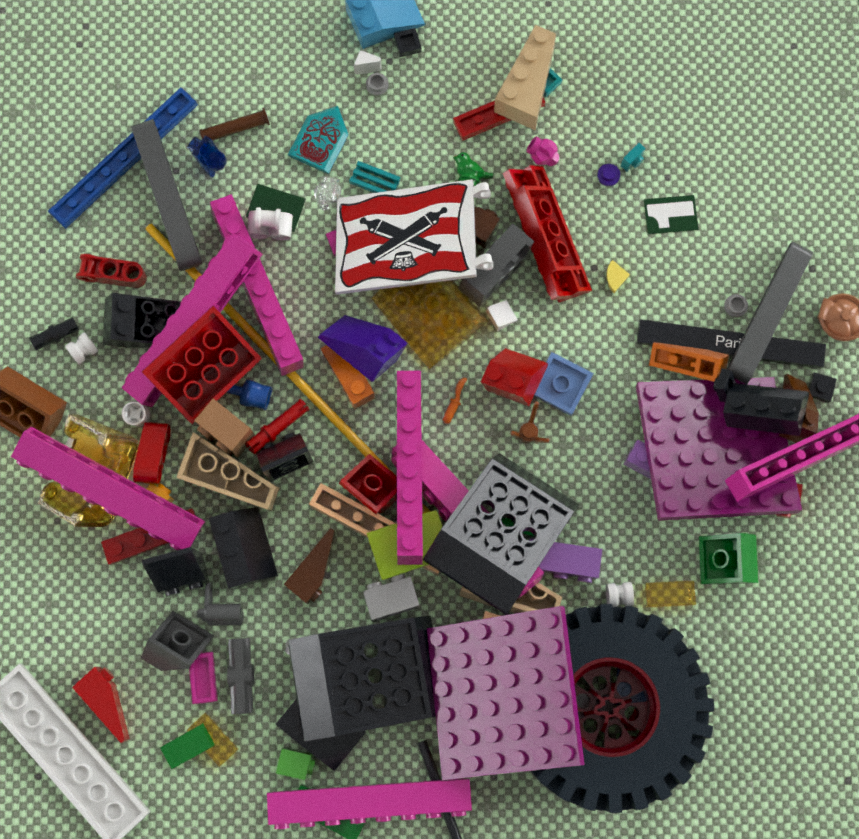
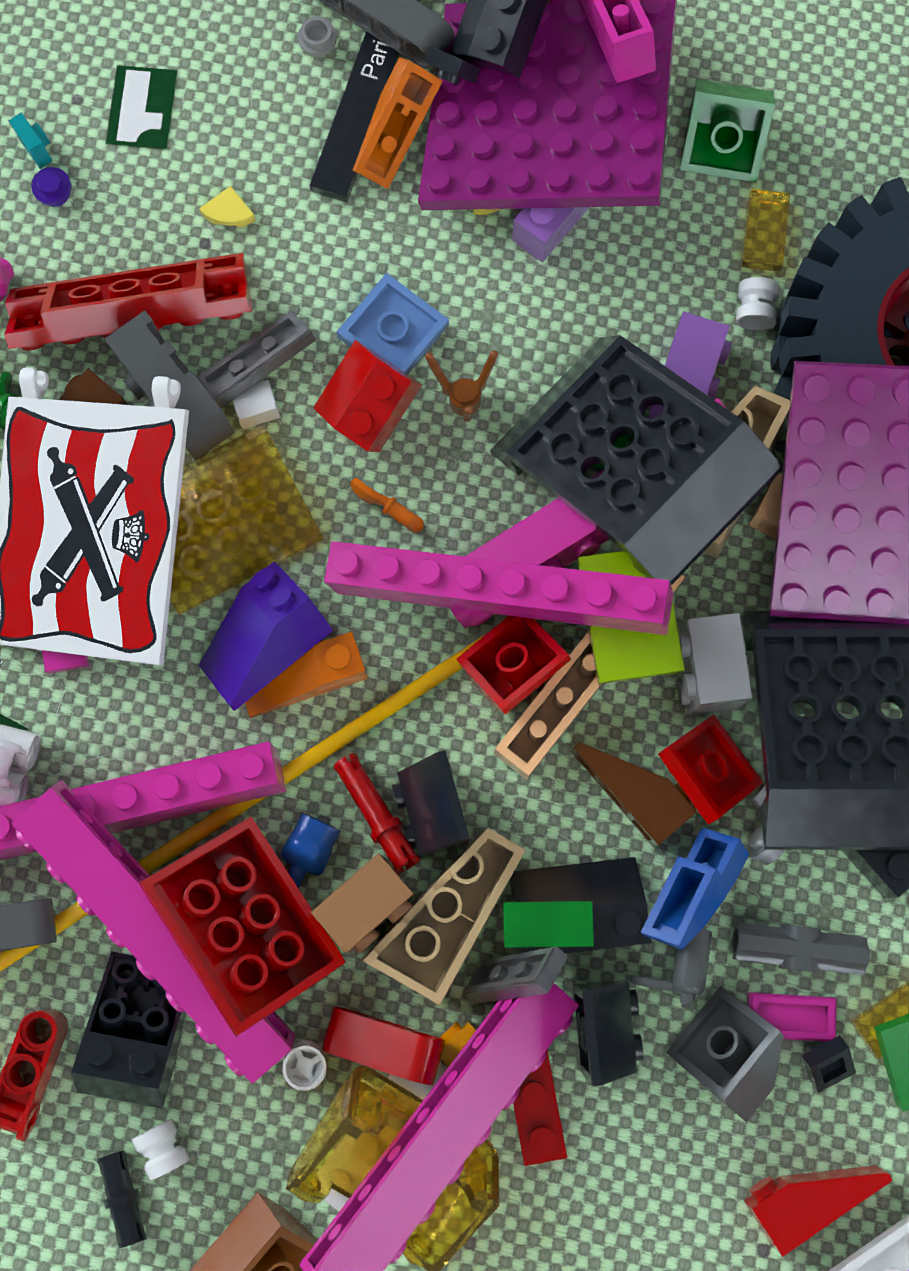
camera: 75 degrees left, 0 degrees up
(179, 701) = (829, 1063): none -> black plate
(197, 514) = (515, 975): none -> flat silver tile
(227, 527) = (548, 924): none -> green tile
(262, 608) = (695, 888): none -> blue slope
(332, 606) = (710, 769): none -> red plate
(527, 310) = (256, 359): none -> flat silver tile

